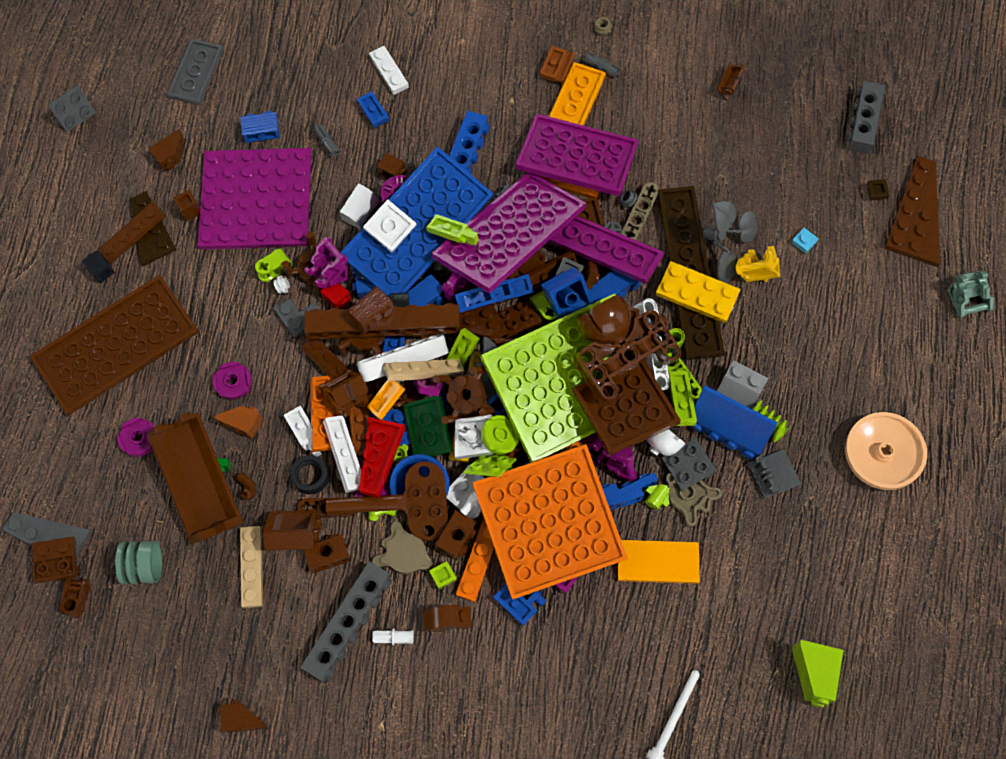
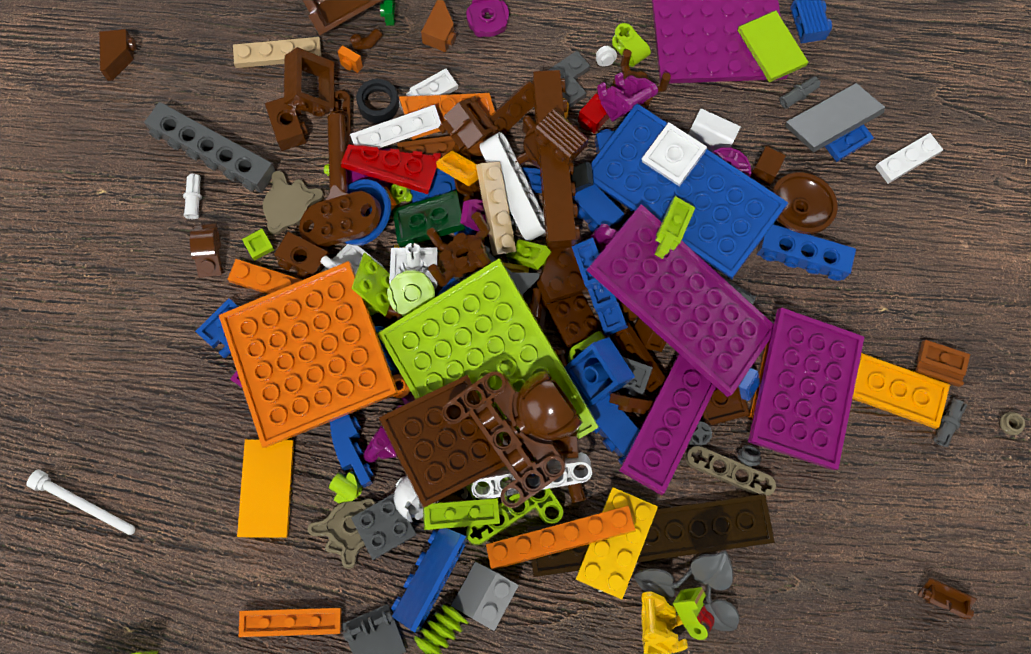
camera: 80 degrees right, 5 degrees up
(267, 498) = (350, 59): none -> orange plate
(285, 155) = (772, 46): none -> lime tile
(352, 117) = (835, 117): none -> tile
(424, 137) = (809, 195): none -> reddish brown dish
(575, 192) = (749, 384): none -> blue tile
(696, 330) = (560, 537): none -> orange plate
(747, 242) = (693, 612): none -> lime leg
(766, 537) = (290, 622): none -> orange plate

